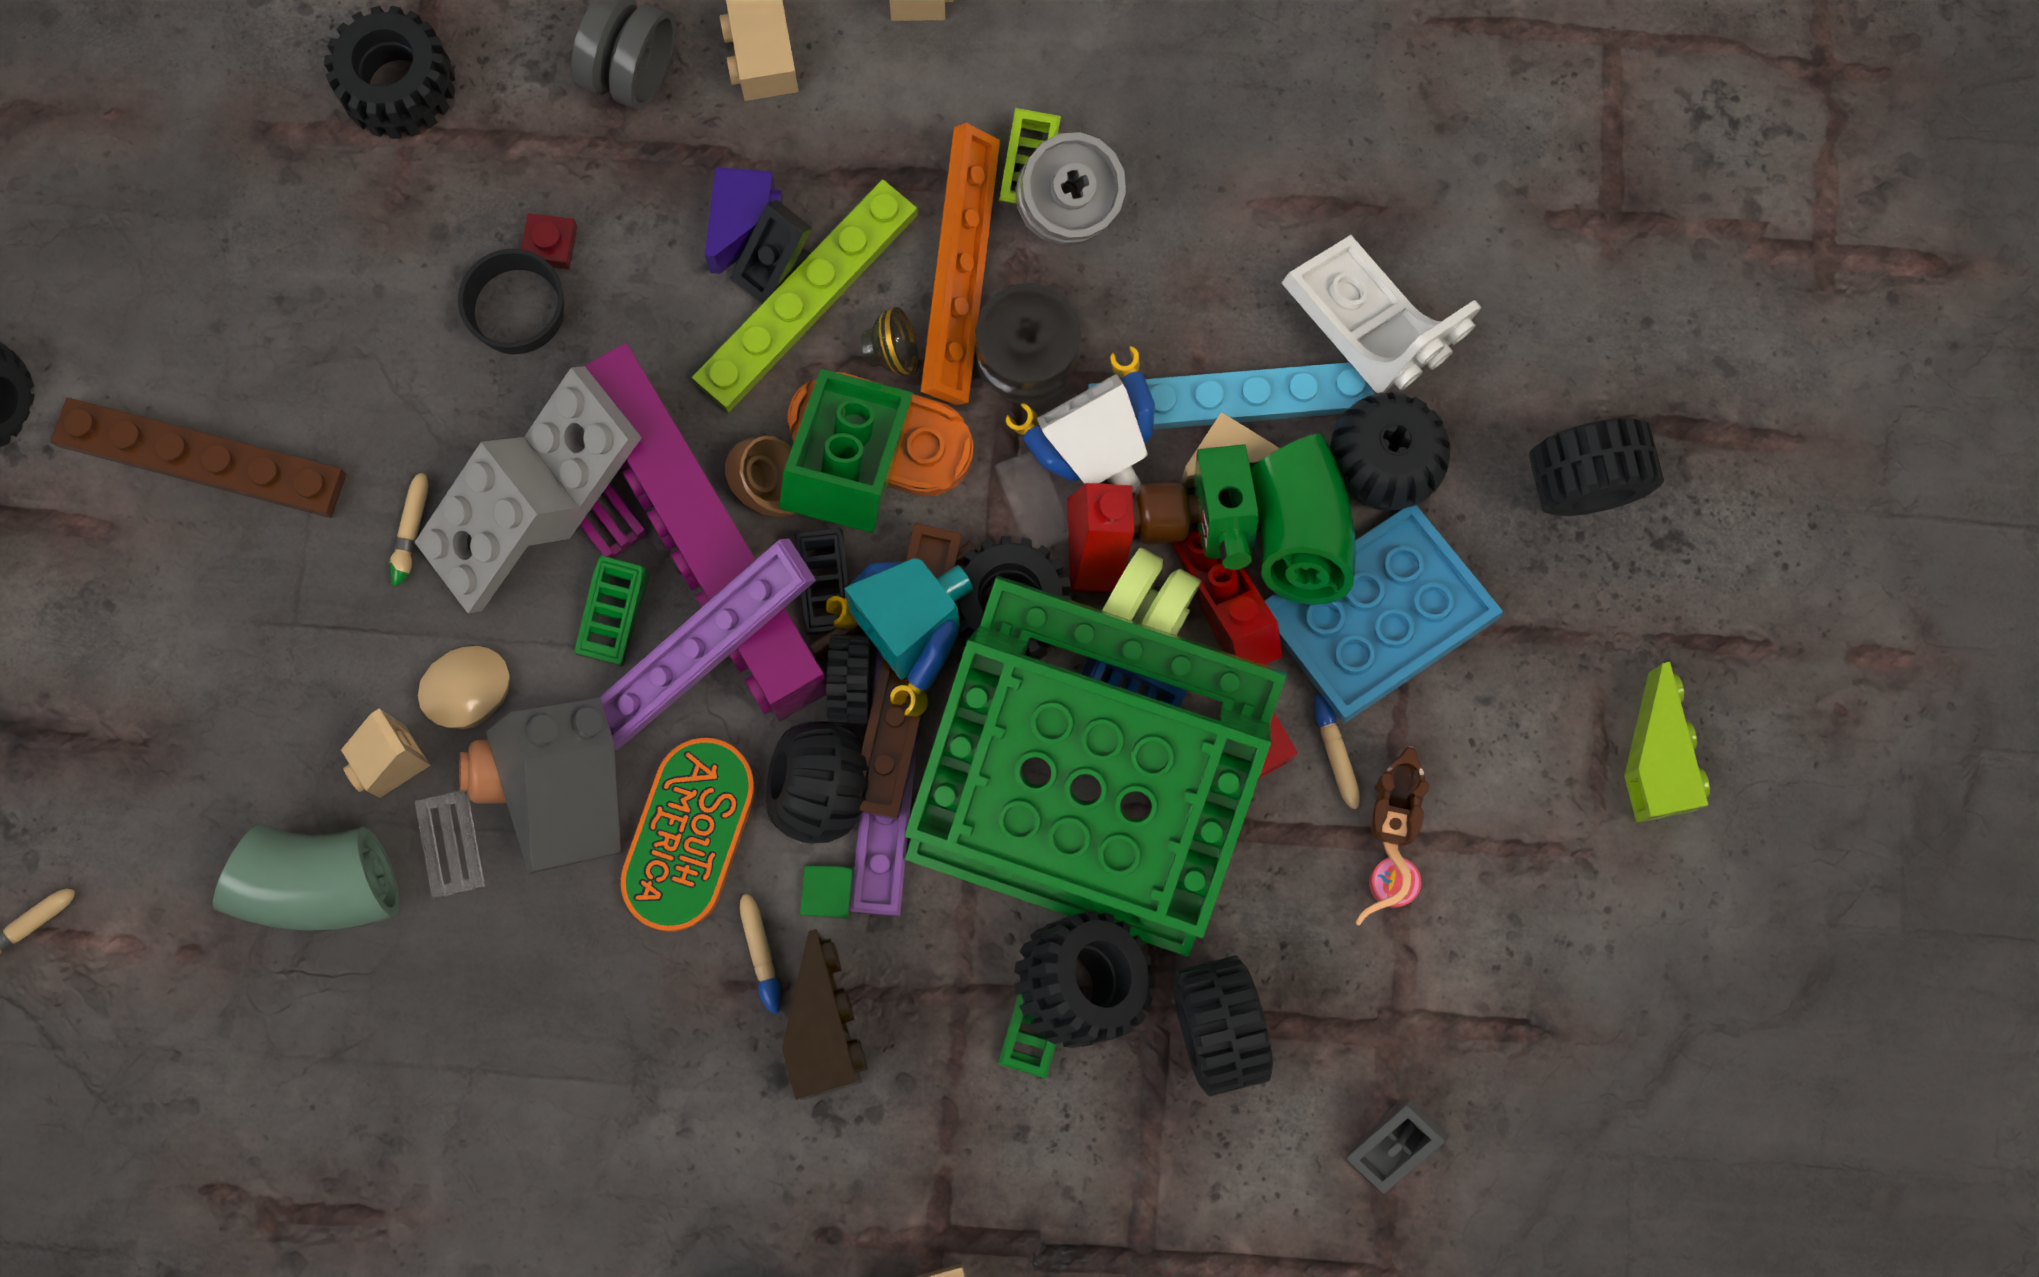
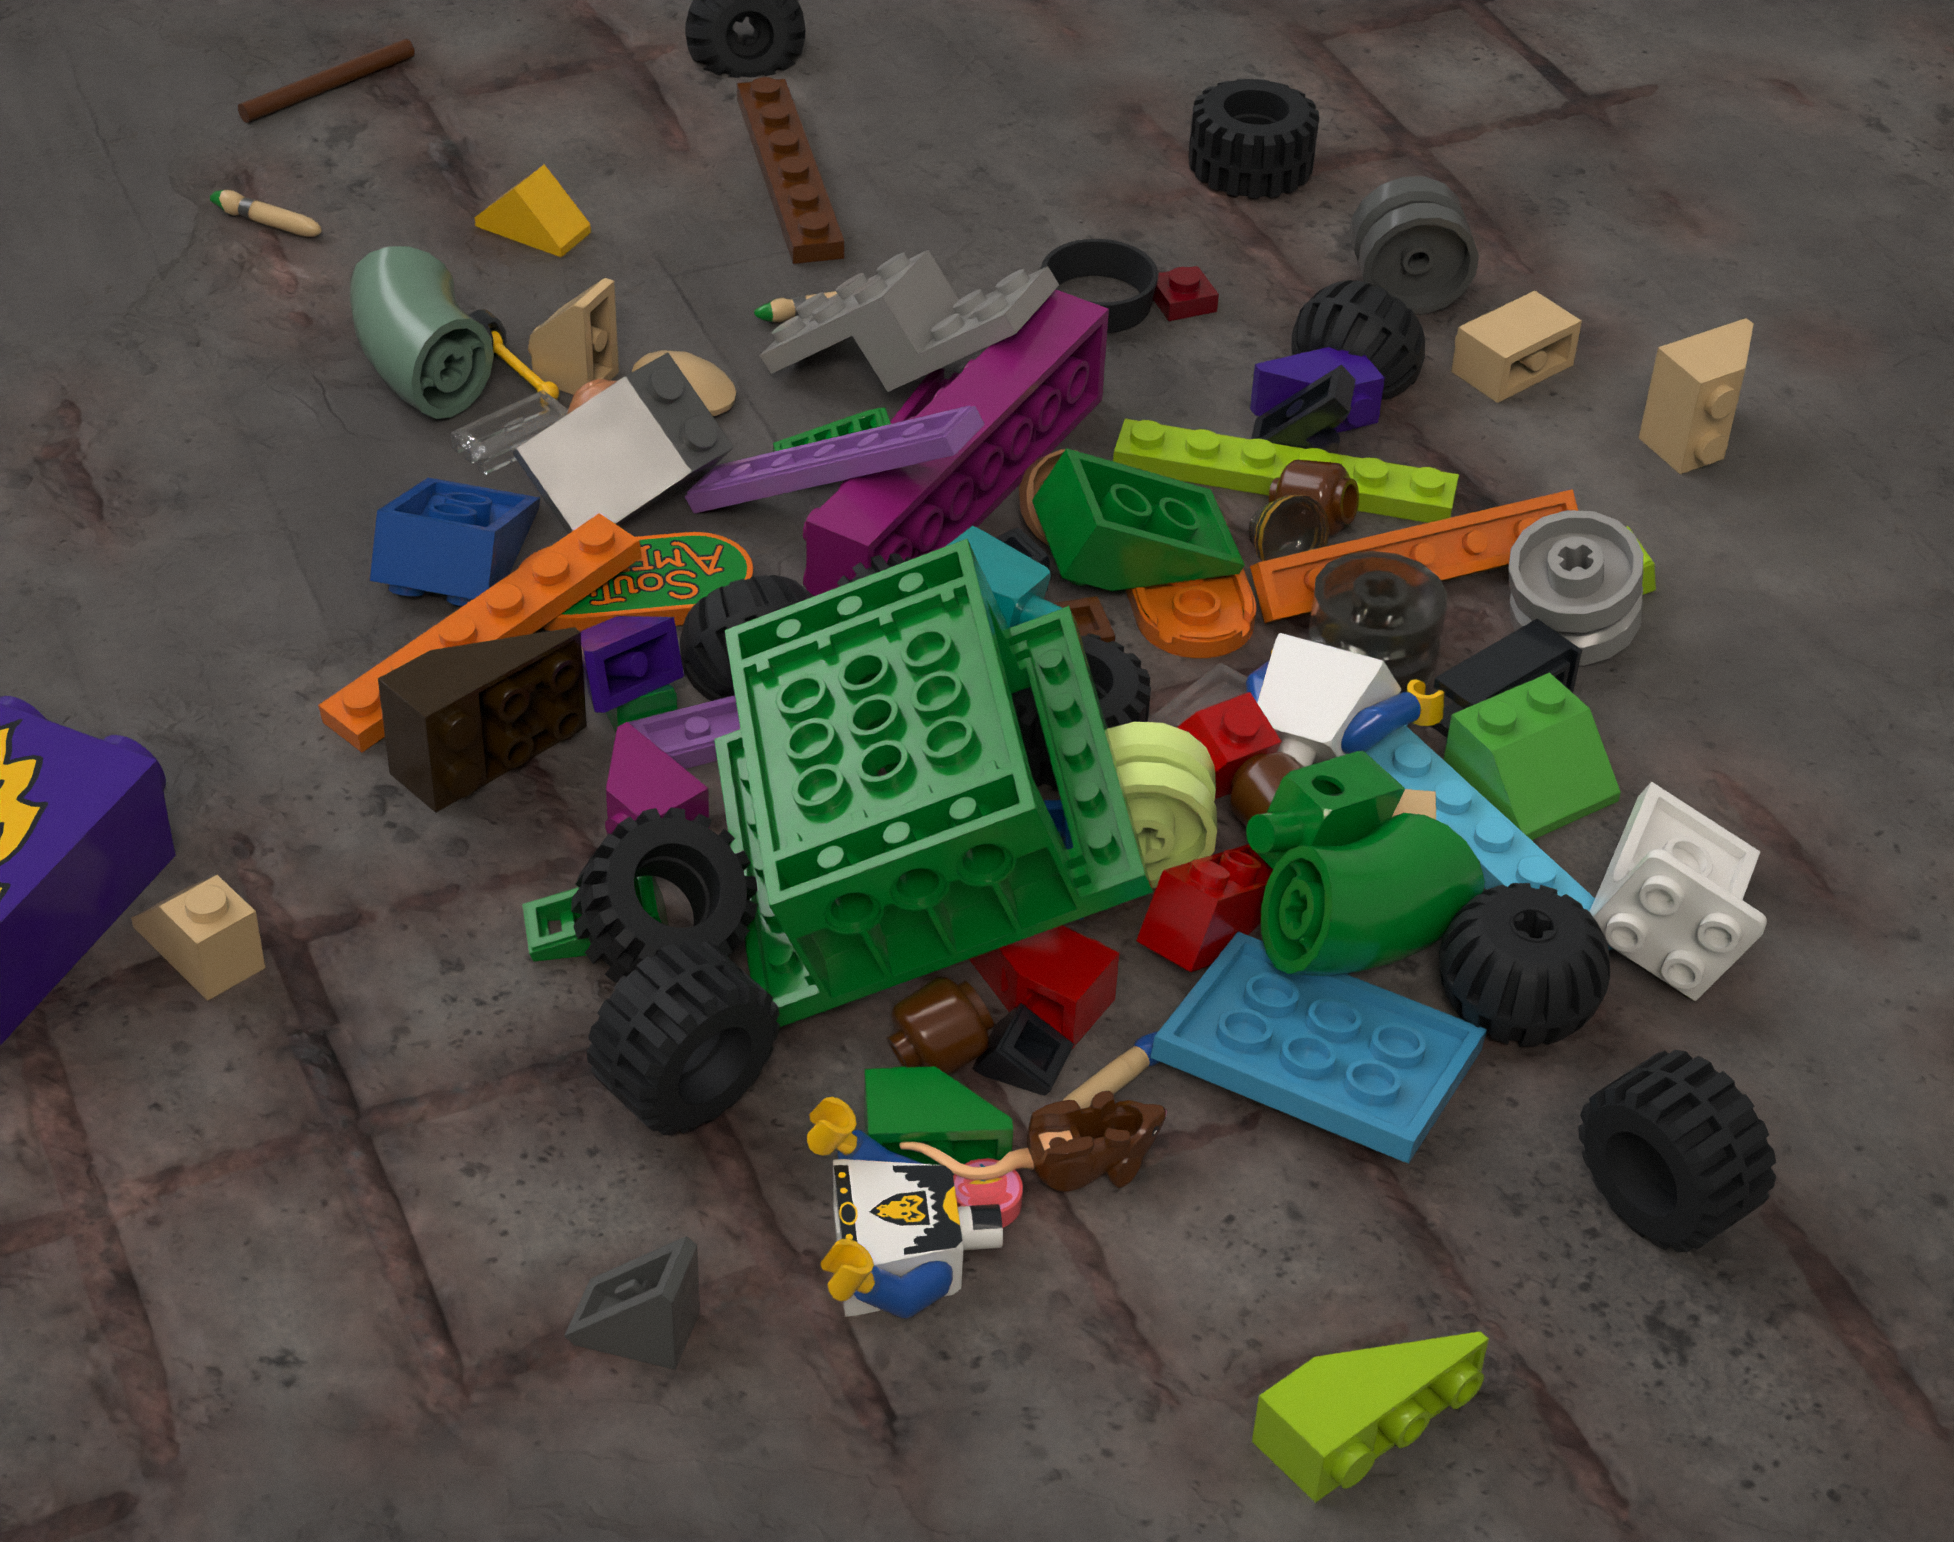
camera: 65 degrees right, 35 degrees down
(156, 702) = (537, 215): none -> yellow slope
(320, 816) = (499, 339): none -> yellow hinge
(573, 949) = (449, 539): none -> blue slope
(696, 155) = (1365, 322): none -> black wheel
(700, 975) = (506, 610): none -> orange plate
(808, 892) = (629, 658): none -> dark purple slope
(860, 297) = (1323, 482): none -> reddish brown head
(946, 936) = (647, 779): none -> magenta slope
(1122, 291) = (1508, 664): none -> black window
(1200, 322) = (1533, 756): none -> bright green slope
(1262, 846) = (940, 1026): none -> reddish brown head
(1287, 797) = (1024, 1052): none -> black slope
(1333, 896) = (932, 1110): none -> green slope
(1416, 958) = (893, 1222): none -> torso

